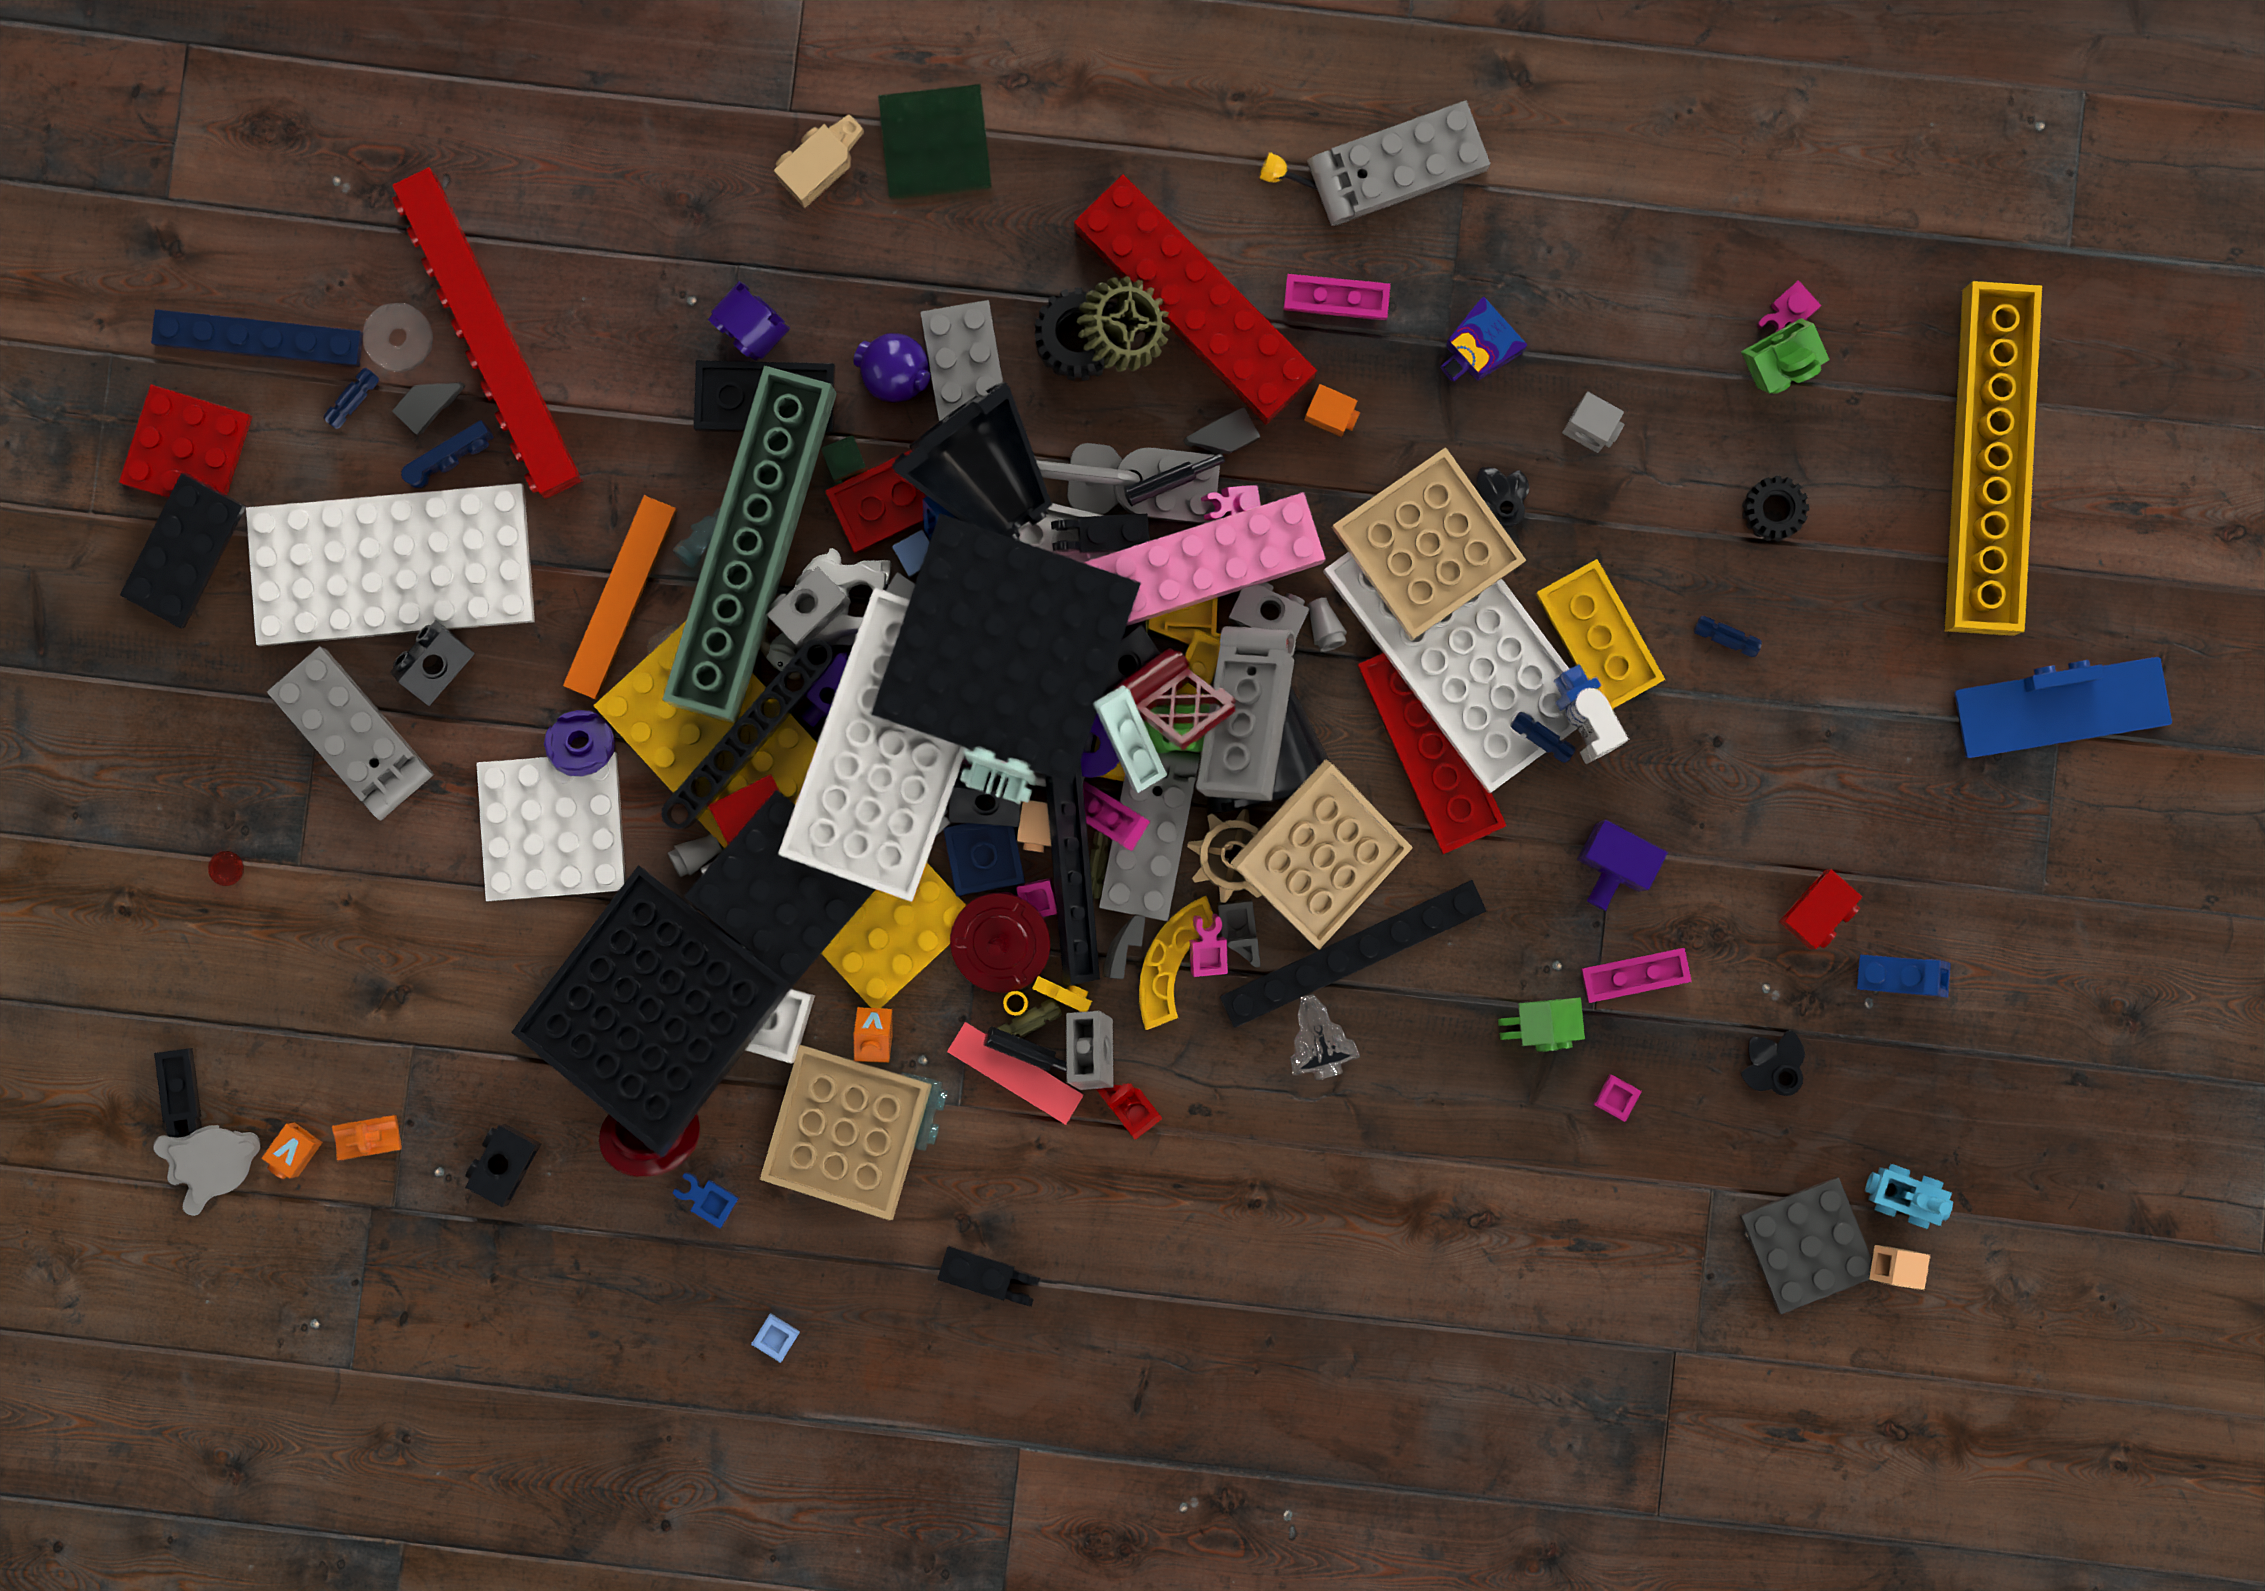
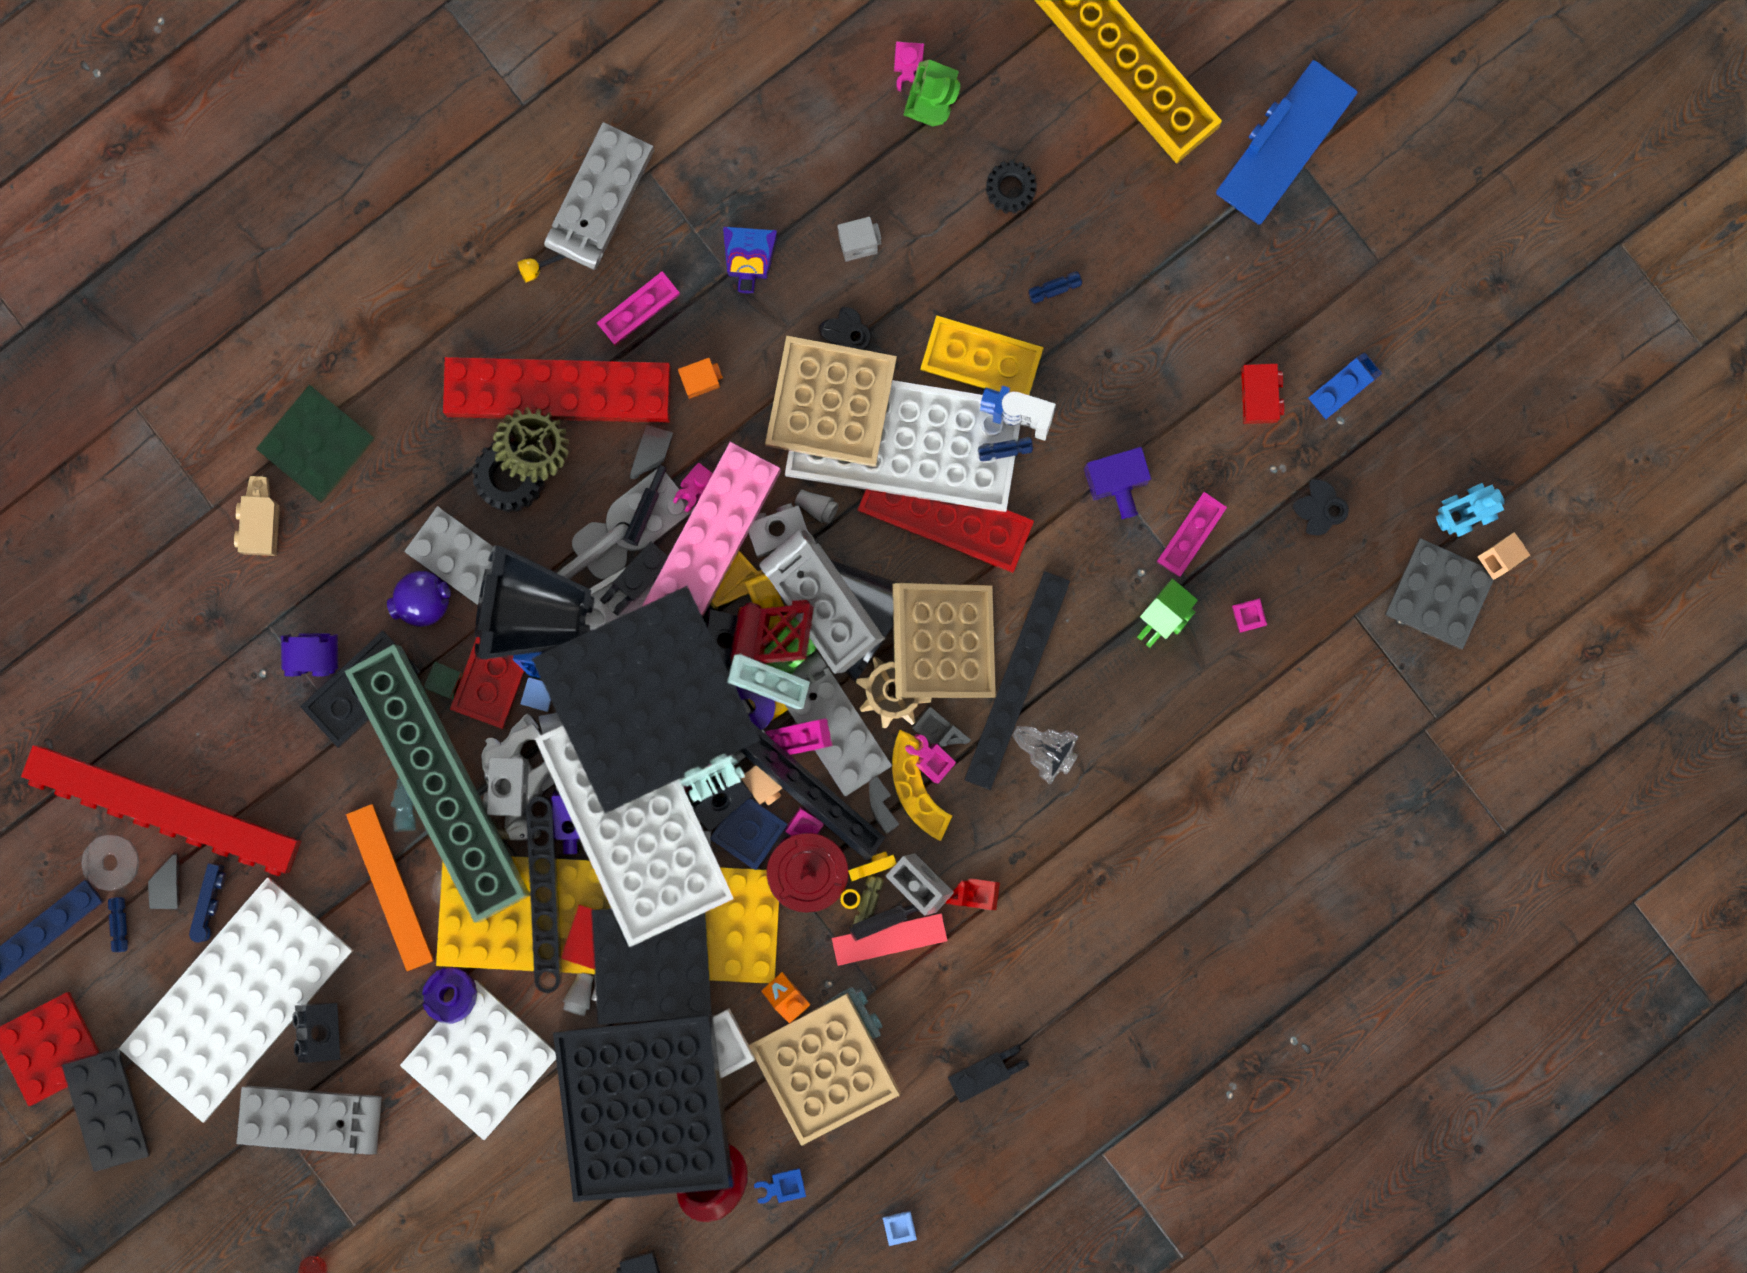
camera: 40 degrees left, 0 degrees up
(1099, 861) = (819, 770): olive axle -> none

